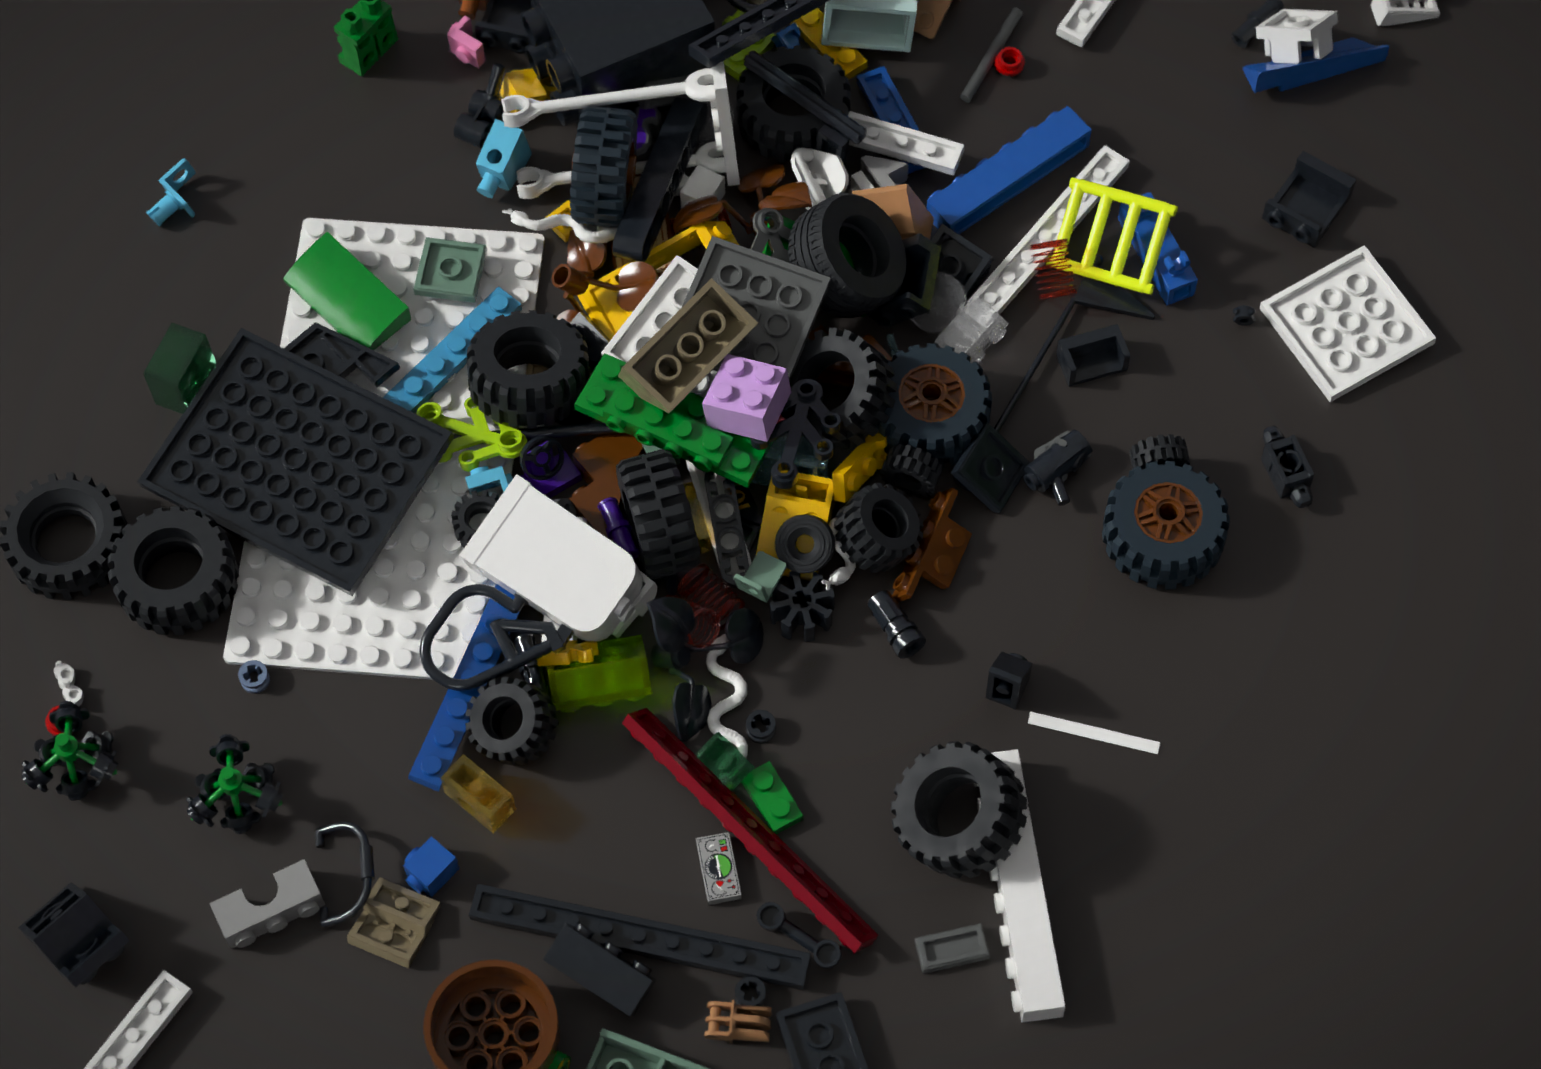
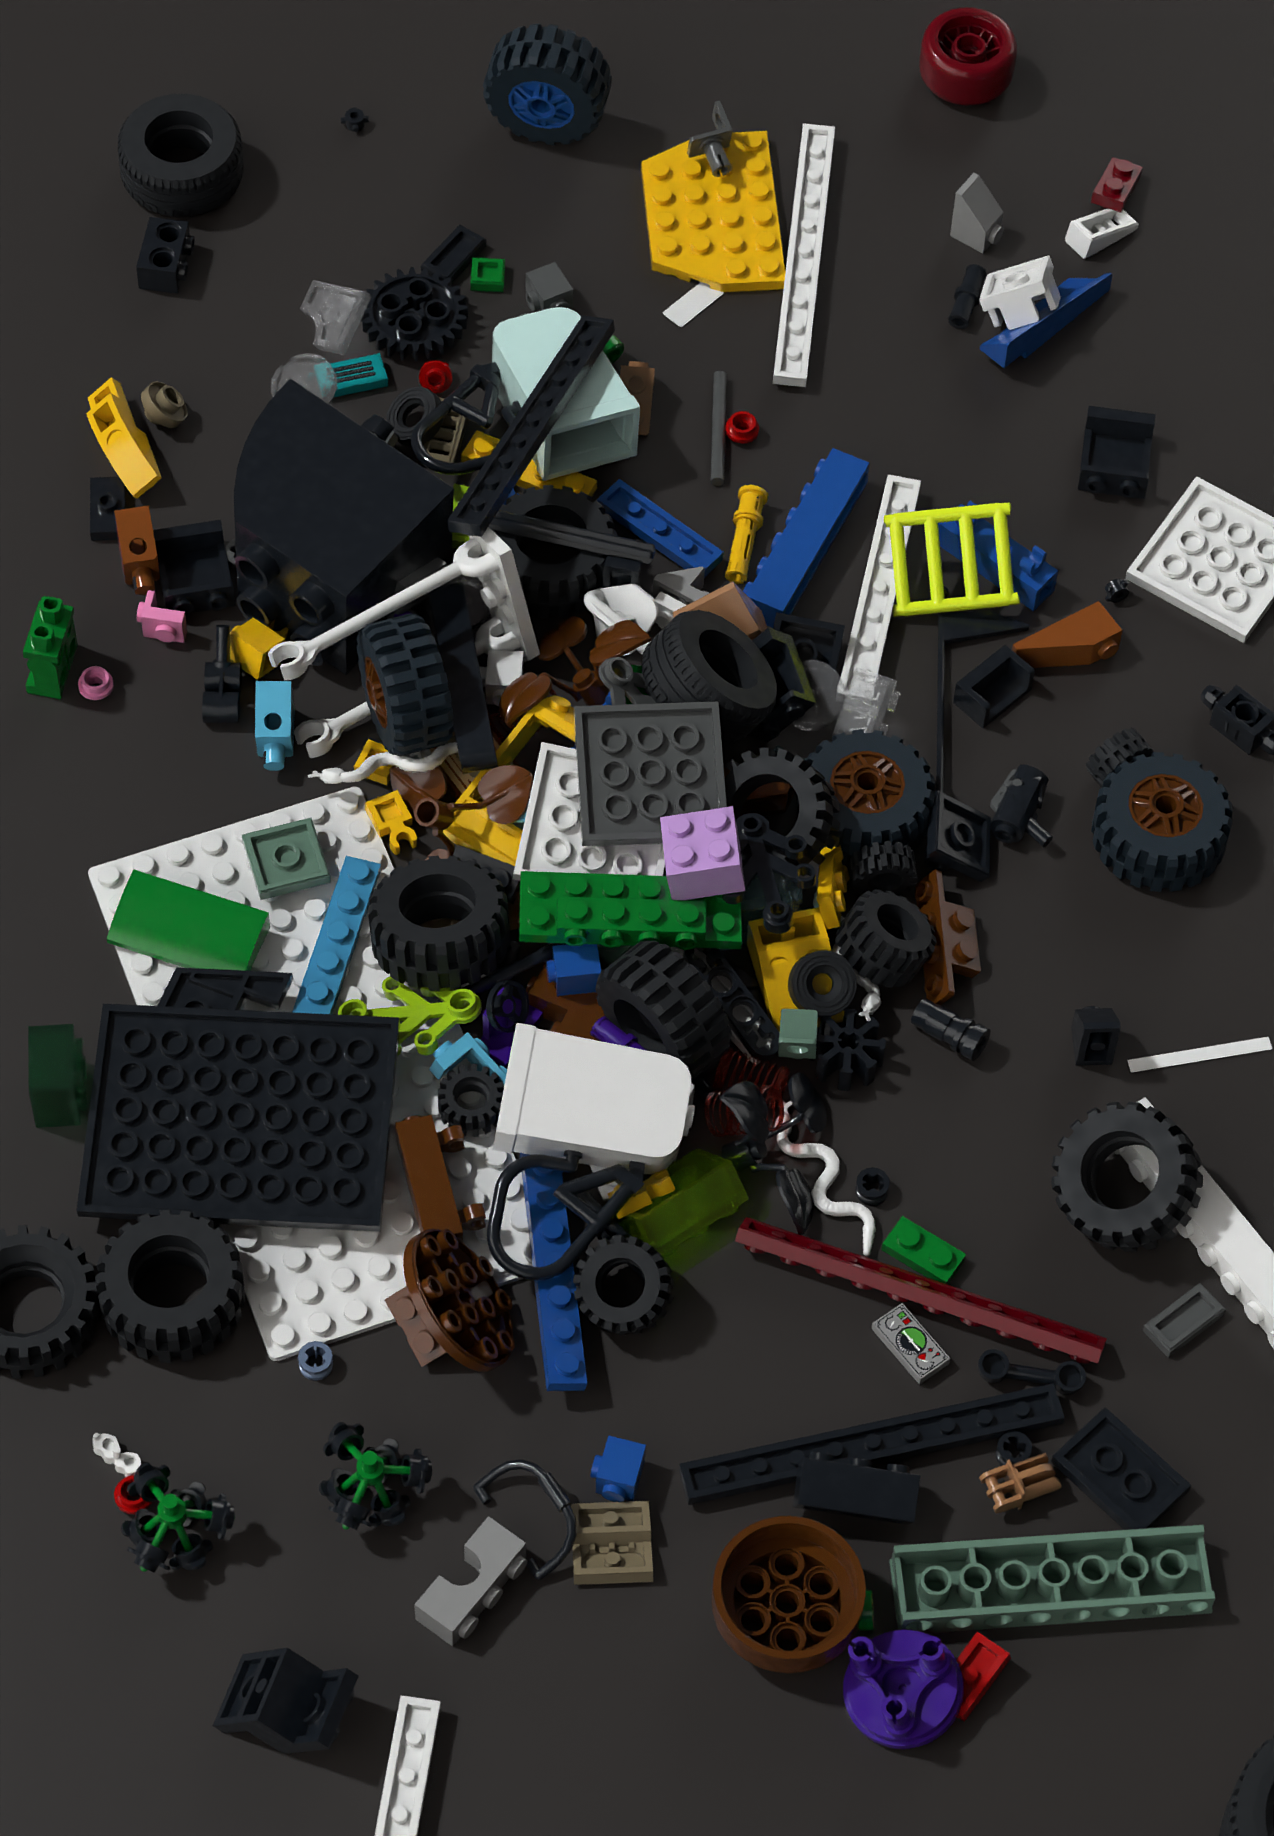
camera: 30 degrees left, 5 degrees down
(371, 677) = (452, 1303): none -> reddish brown bracket
(388, 68) = (92, 676): none -> bright pink plate
(410, 575) = (427, 1175): none -> reddish brown brick
(478, 793) = (629, 1373): clear yellow brick -> none
(546, 263) = (391, 817): none -> yellow plate
(611, 447) = (574, 969): none -> blue brick
(687, 347) = (617, 827): dark tan slope -> none
(725, 761) = (862, 1233): clear green bracket -> none
(909, 144) = (700, 547): white plate -> none
(972, 138) = (747, 522): none -> yellow pin
(1055, 243) = (896, 592): clear red piece -> none
(1180, 342) = (1073, 640): none -> dark orange slope

